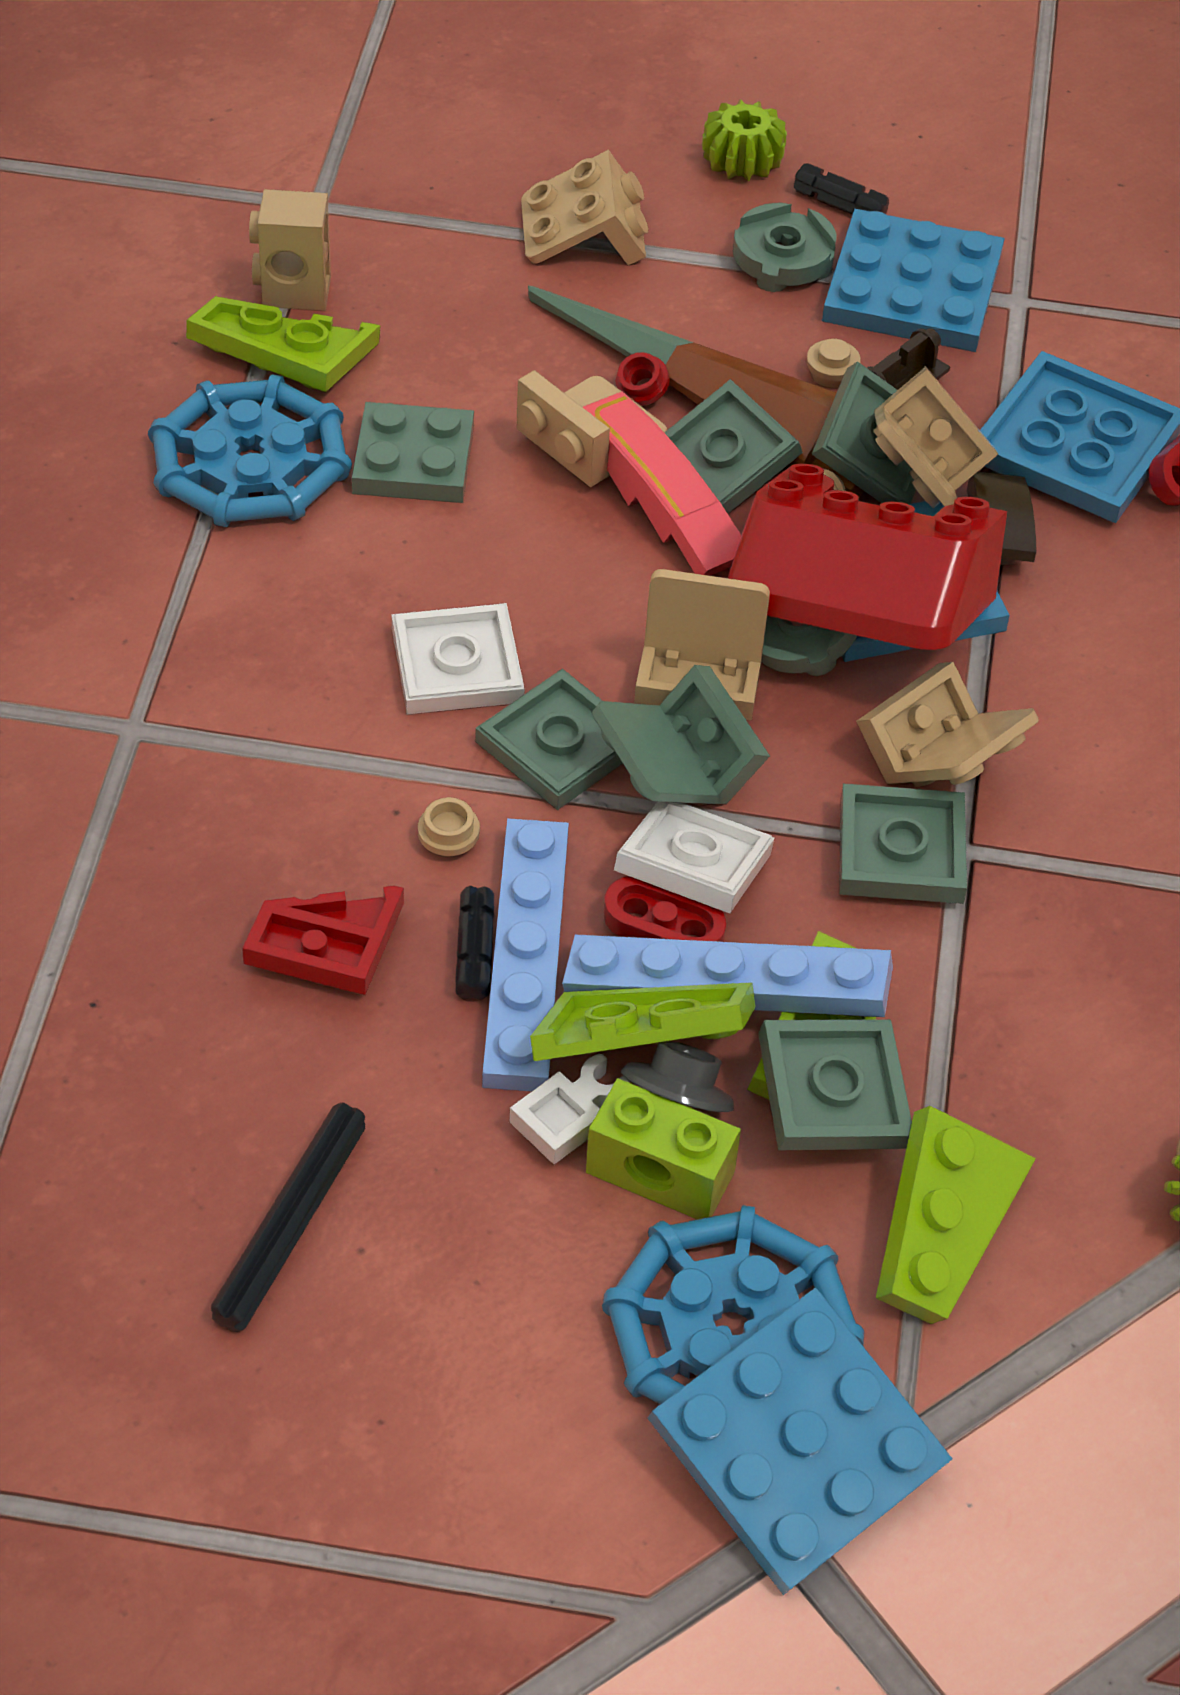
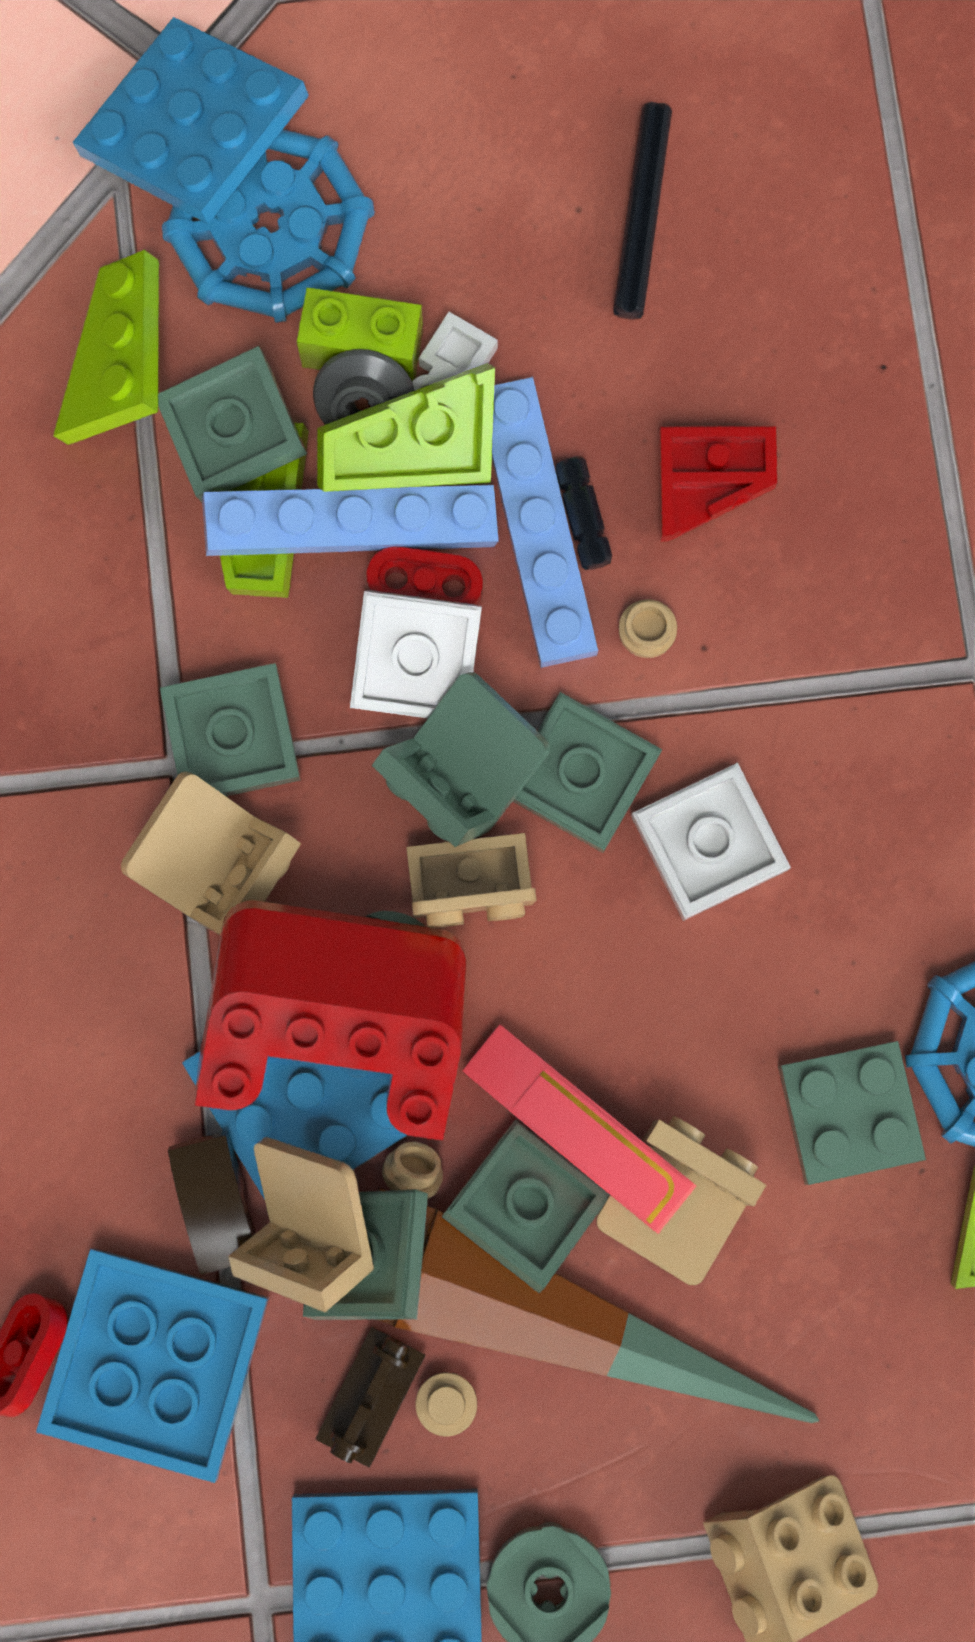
camera: 165 degrees right, 30 degrees up
(638, 367) = (653, 1282): red plate -> none

